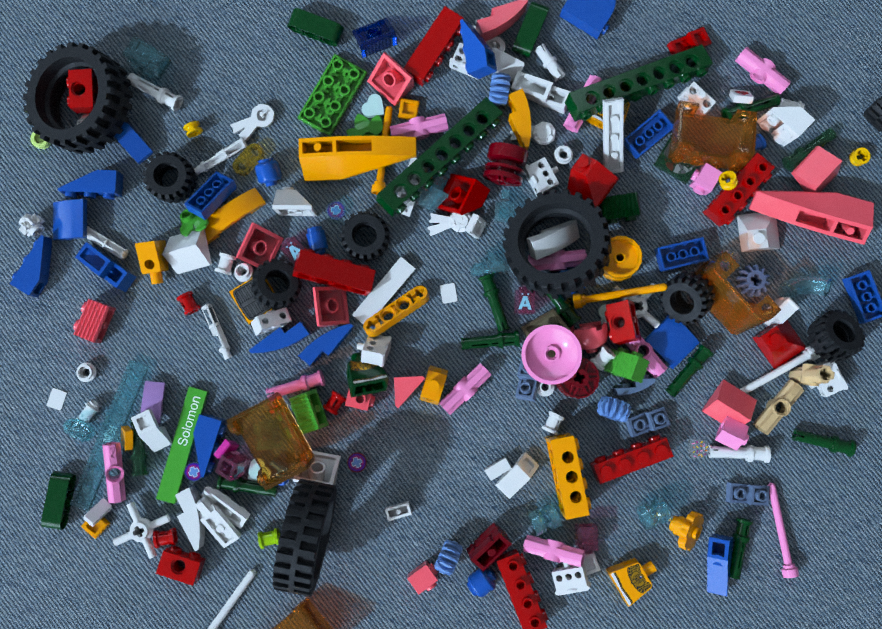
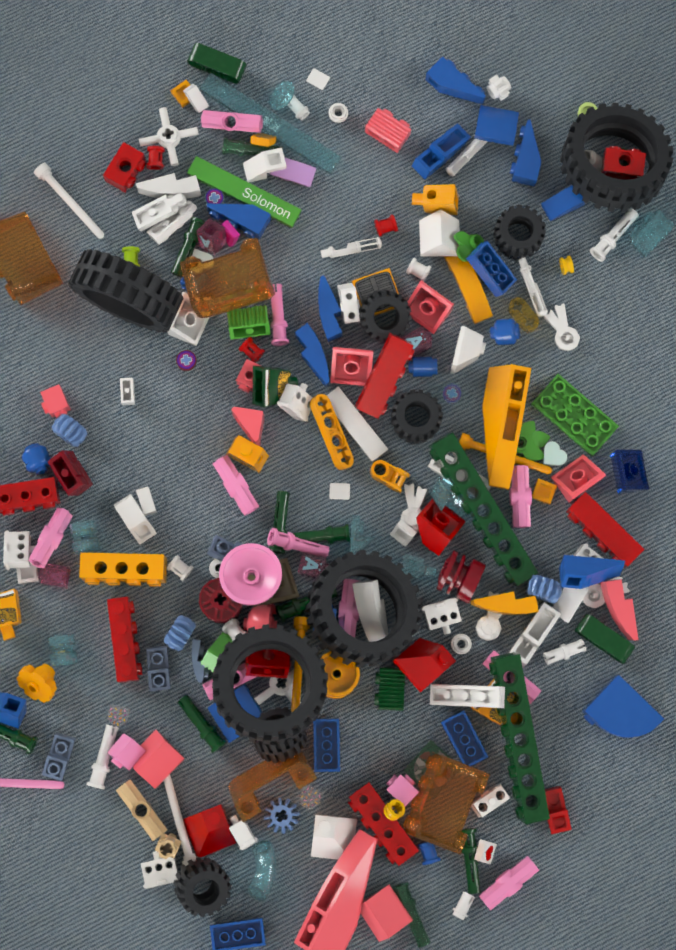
camera: 100 degrees right, 5 degrees down
(240, 268) = (409, 282): white plate -> none
(315, 27) = (651, 411): dark green beam -> none
(425, 247) = (390, 476): none -> light orange piece
(508, 326) = (289, 541): none -> bright pink pin
(668, 270) = (279, 640): none -> black tyre
(785, 123) = (443, 891): white slope -> none
(833, 443) = (88, 861): dark green pin -> none

